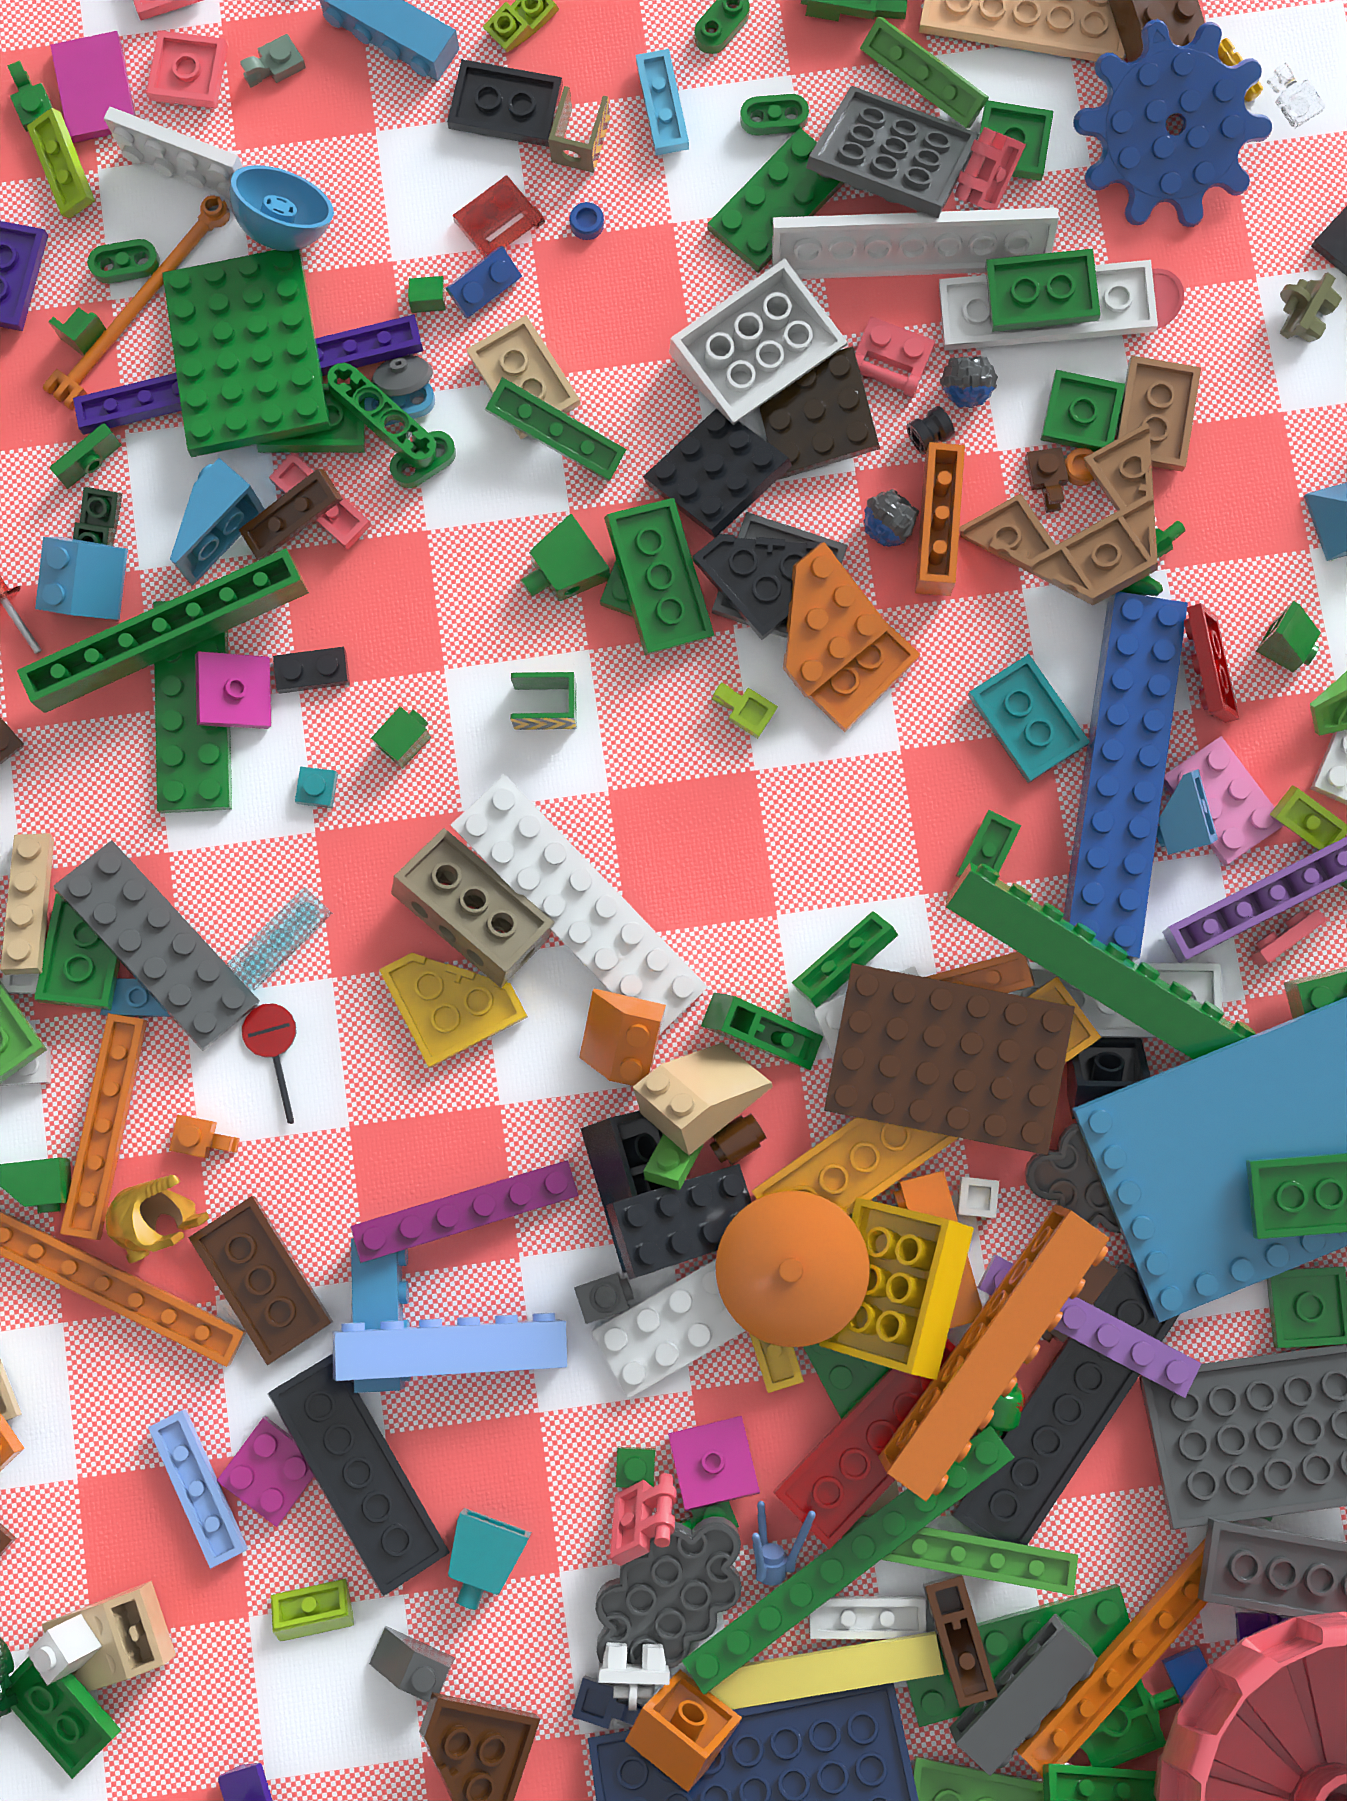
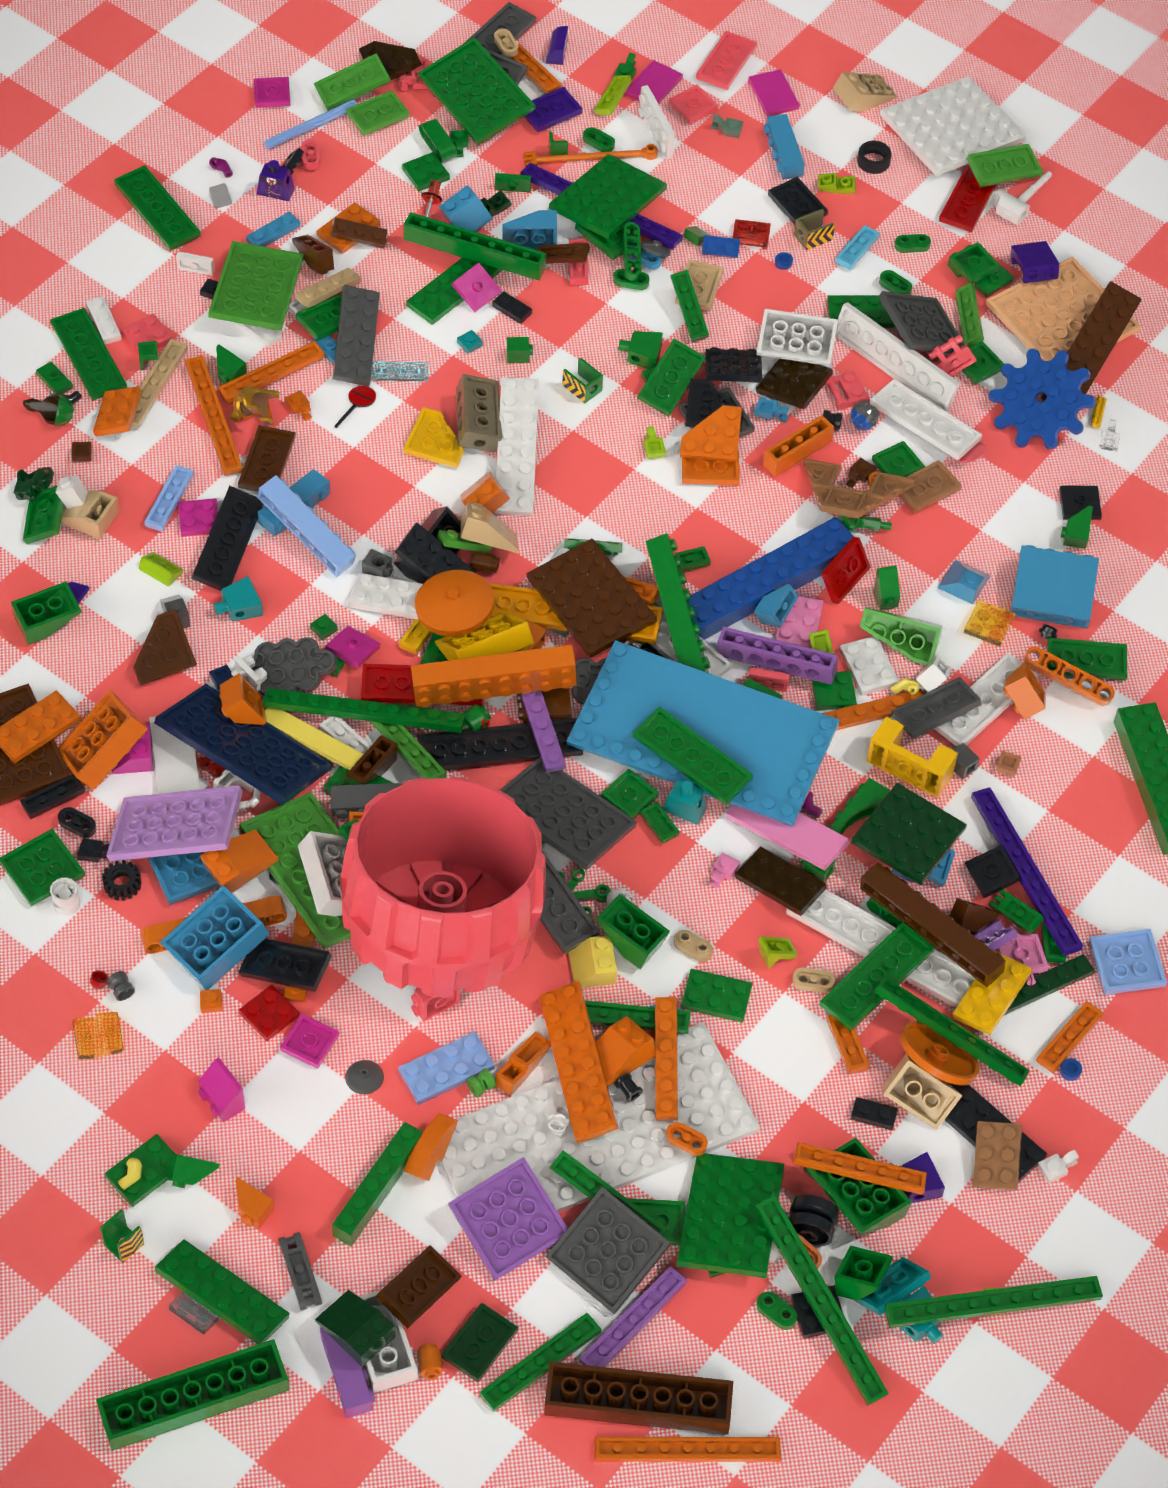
camera: 40 degrees right, 25 degrees down
(279, 207) = (672, 163): dark azure piece -> none
(463, 1211) = (362, 496): magenta plate -> none
(634, 1522) = (312, 631): coral plate -> none
(761, 1030) = (534, 537): green slope -> none
(770, 1557) = (337, 688): medium blue plant -> none
(830, 494) = (768, 408): none -> dark azure plate
(889, 518) = (779, 429): dark grey piece -> none
(1028, 718) = (755, 533): teal plate -> none
(1042, 290) = (926, 408): green plate -> none
(1303, 303) = (1029, 499): olive hips -> none

